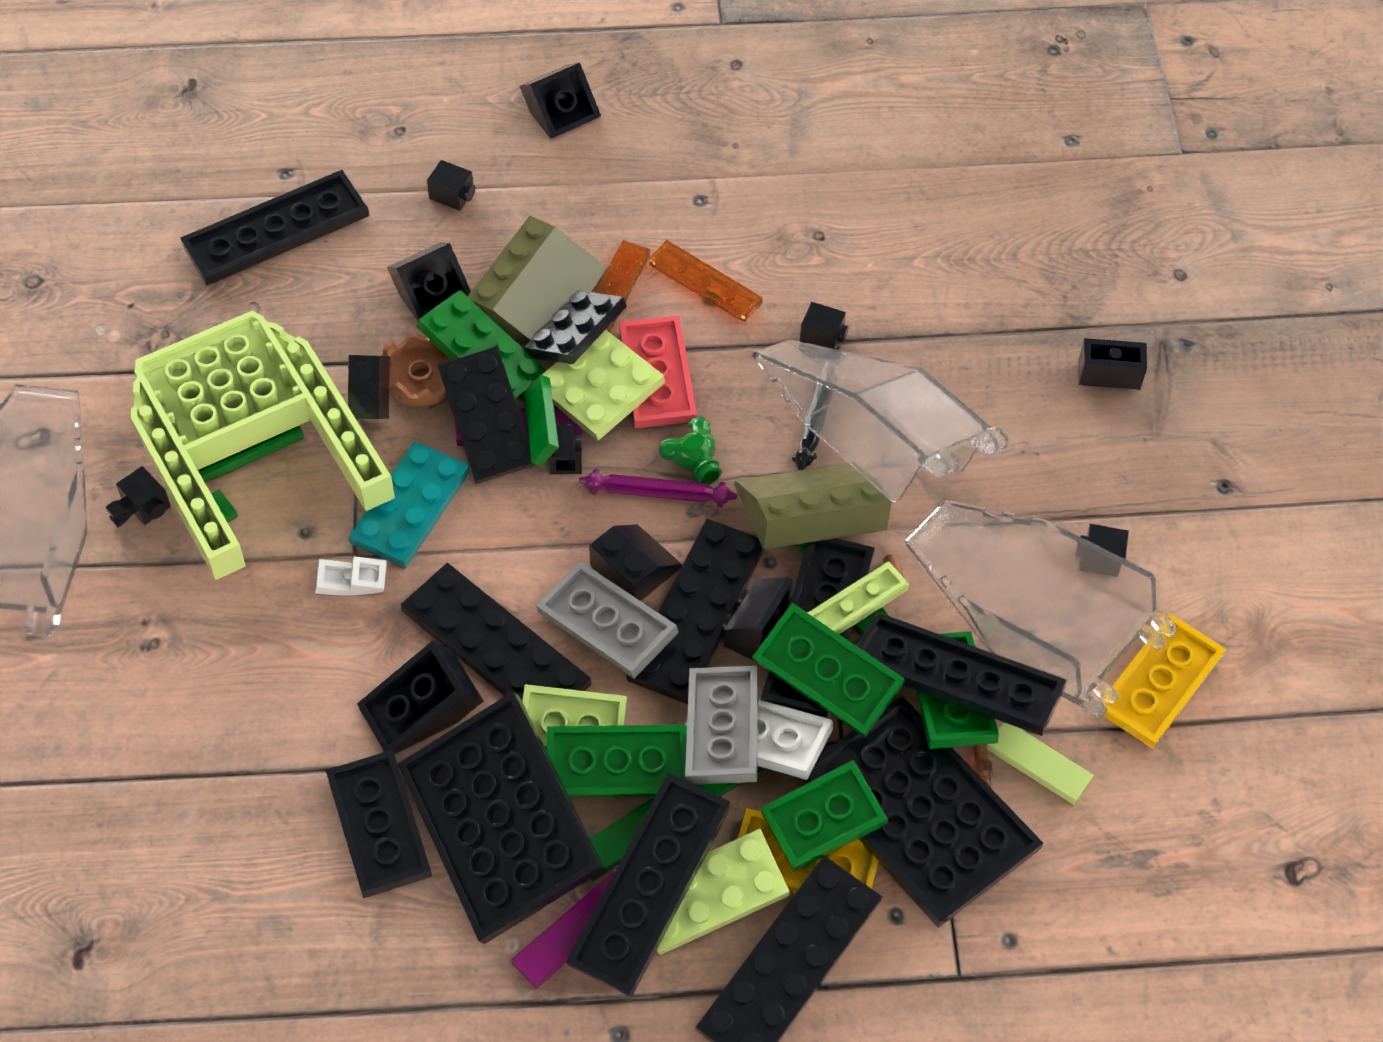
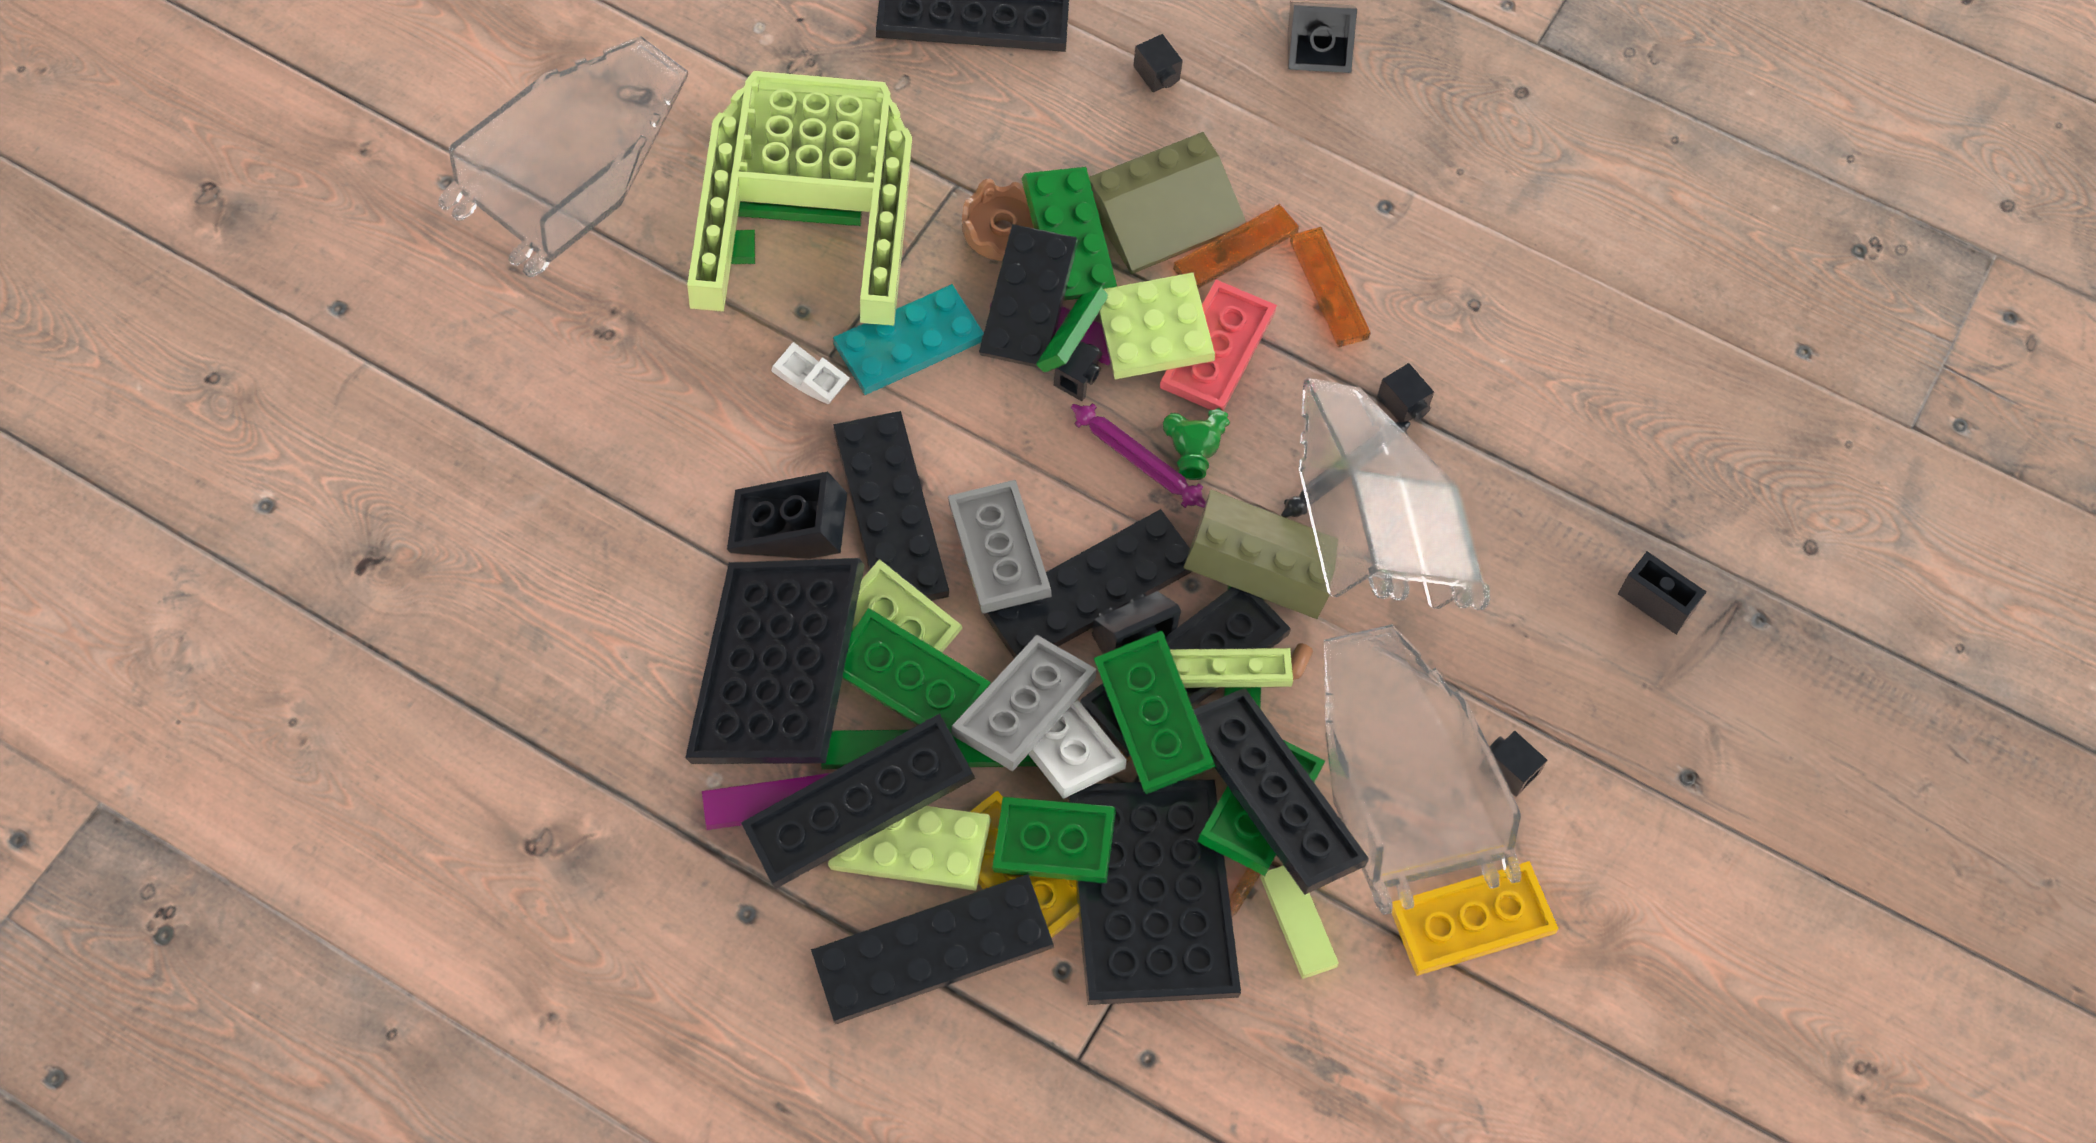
camera: 30 degrees right, 5 degrees up
(139, 496) = (681, 198): black brick -> none
(369, 386) = (941, 210): black brick -> none
(378, 823) = (676, 604): black plate -> none
(428, 278) = (1073, 140): black slope -> none
(575, 327) = (1169, 260): black plate -> none
(632, 560) = (1065, 507): black slope -> none

